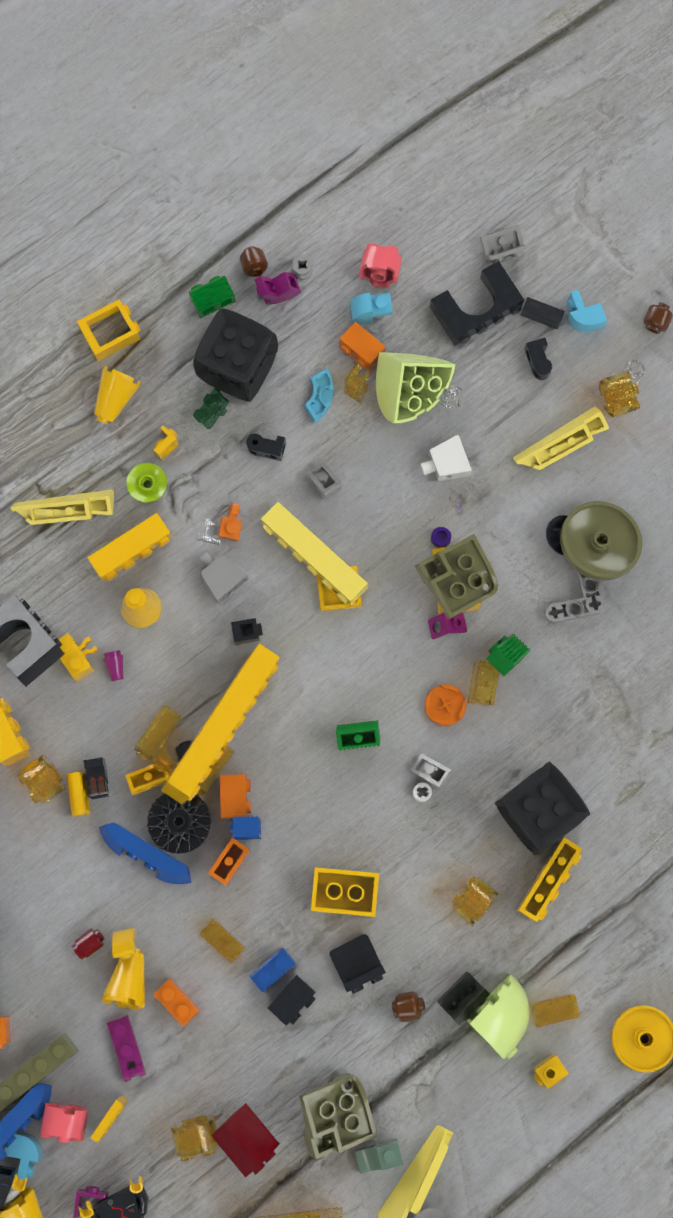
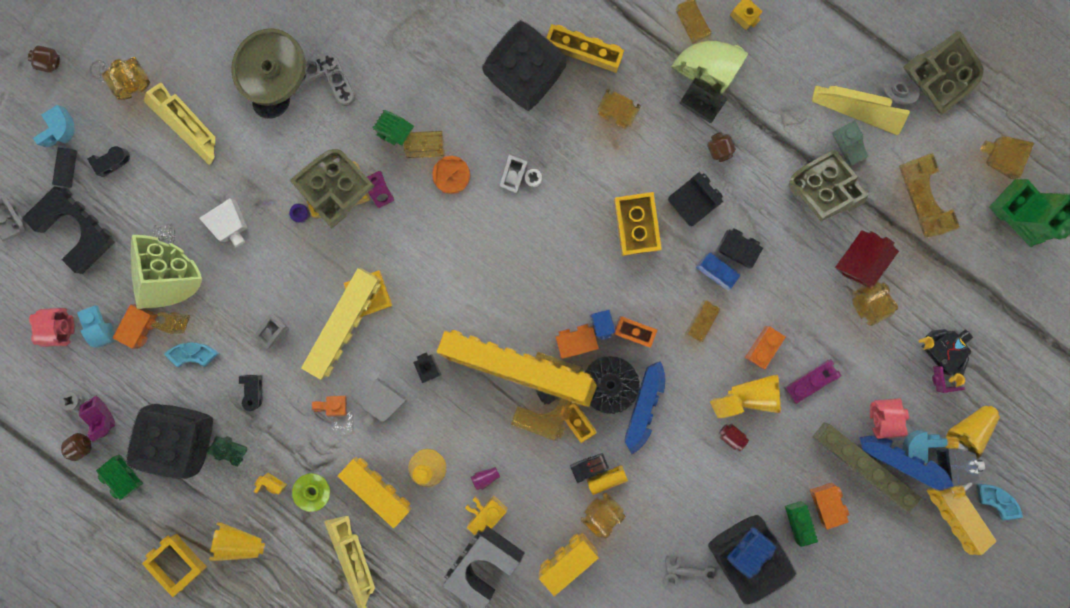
camera: 105 degrees left, 10 degrees up
(109, 1118) = (877, 380): yellow tile -> none
(358, 735) = (497, 244): green brick -> none

